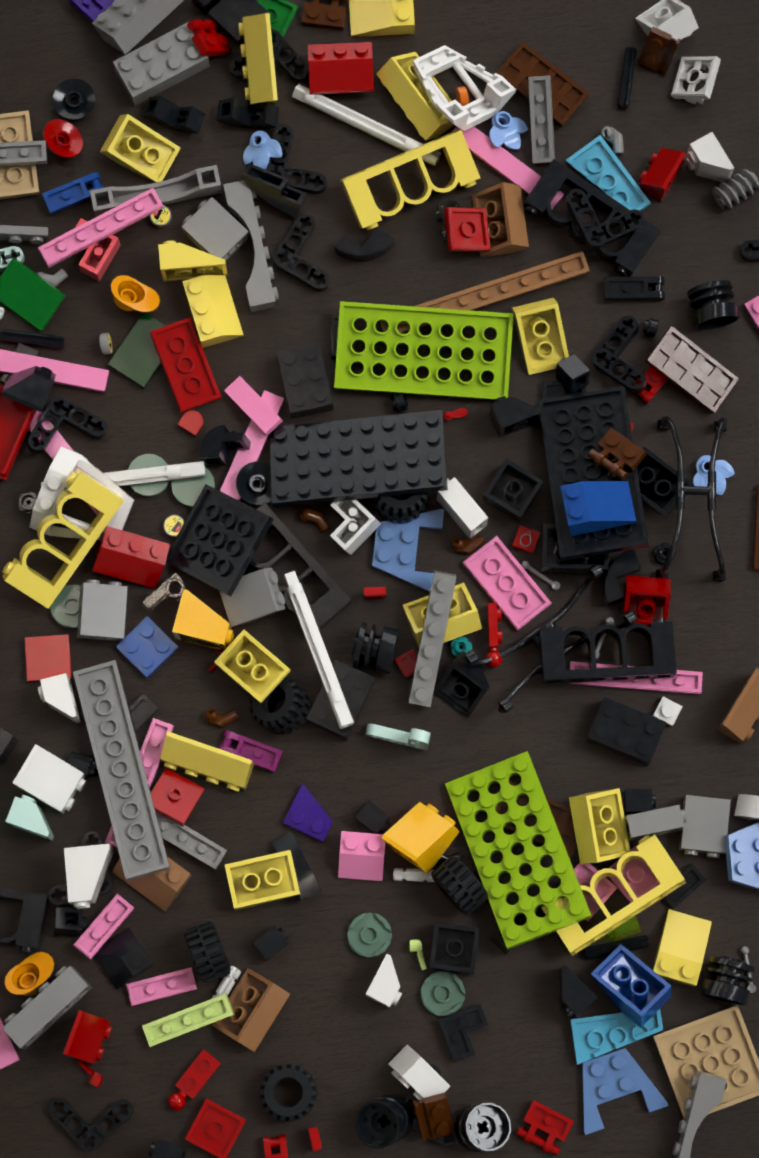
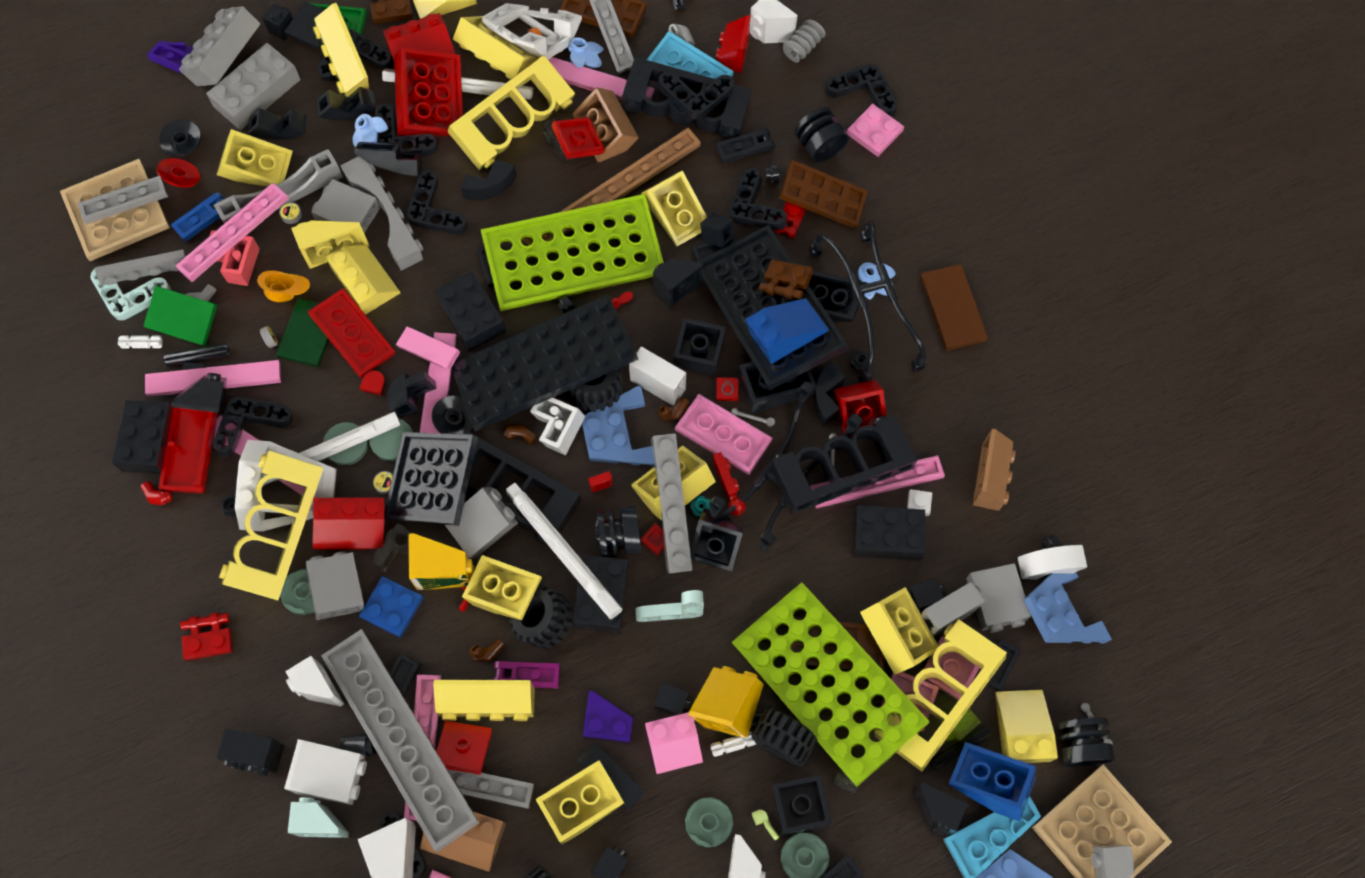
camera: 20 degrees left, 10 degrees down
(47, 657) = (291, 647): tile -> none
(207, 39) = (289, 52): red plate -> none
(333, 130) = (427, 91): none -> red slope

